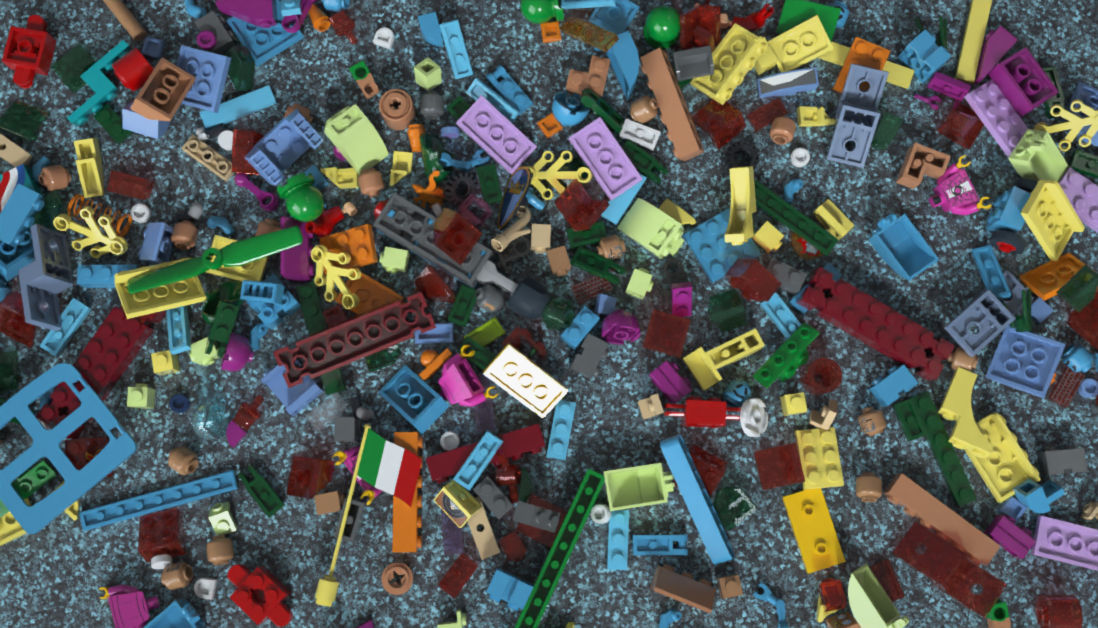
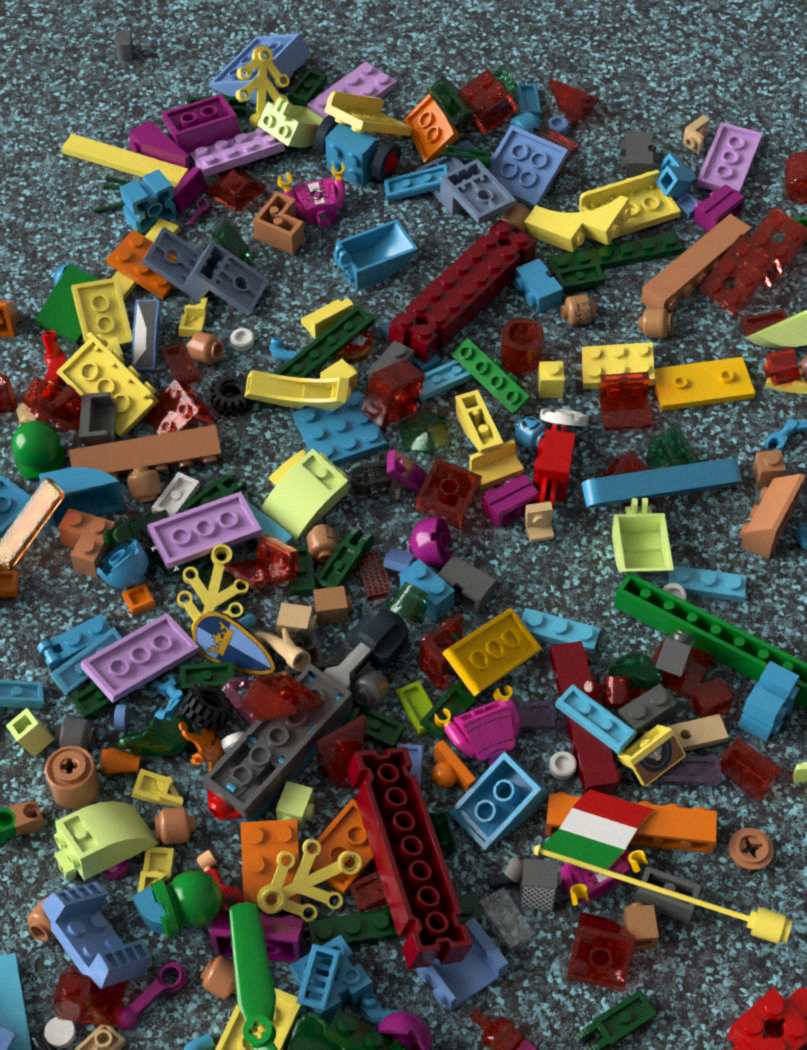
camera: 80 degrees left, 25 degrees down
(639, 283) = (376, 519): yellowish green brick -> none
(659, 544) = (715, 538): dark azure plate -> none
(825, 417) = (568, 348): tan bracket -> none

